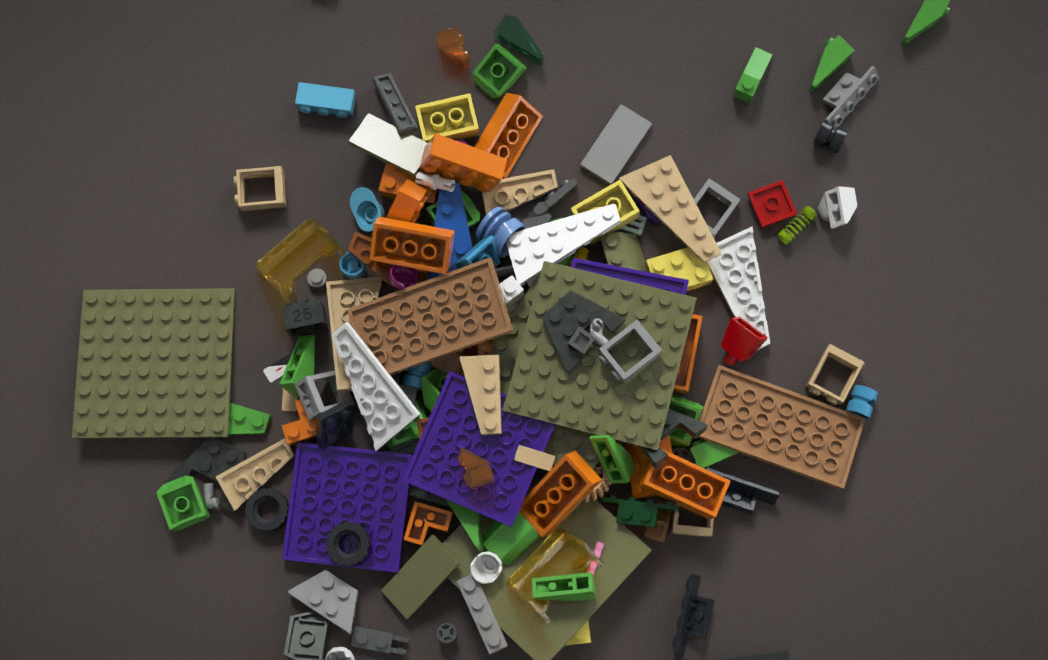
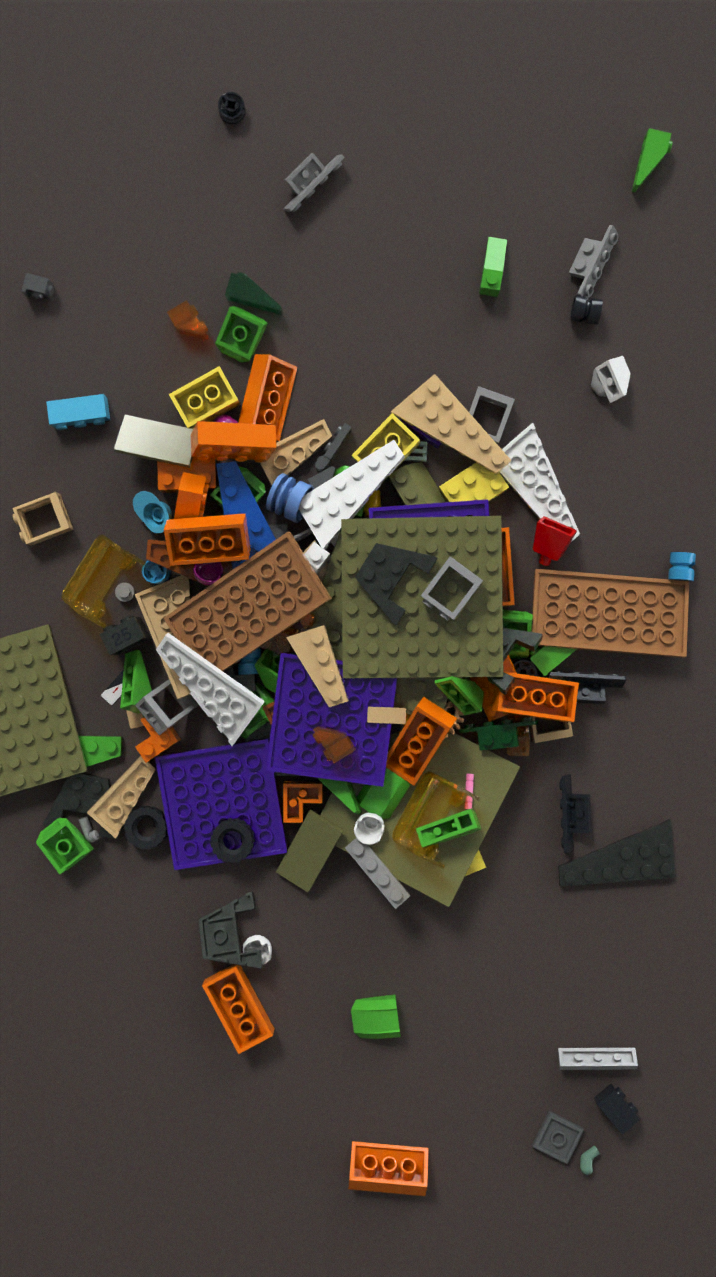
camera: 20 degrees left, 10 degrees up
(328, 598) = (229, 893): light grey wing -> none
(334, 424) = (185, 731): black plate -> none
(376, 640) = (286, 918): dark grey hinge -> none
(395, 104) = (148, 397): dark grey tile -> none
(435, 182) = (211, 467): white pin -> none
(444, 631) = (347, 897): dark grey wheel -> none
(482, 250) = (276, 526): dark azure slope -> none
(581, 340) = (400, 591): dark grey tile -> none
(596, 331) = (413, 578): light grey arm -> none
(616, 144) = (377, 376): light grey tile -> none
(772, 204) = (546, 394): red plate -> none
(785, 237) = (583, 392): lime piece -> none
(835, 54) = (567, 227): bright green slope -> none
(845, 359) = (653, 528): tan window -> none

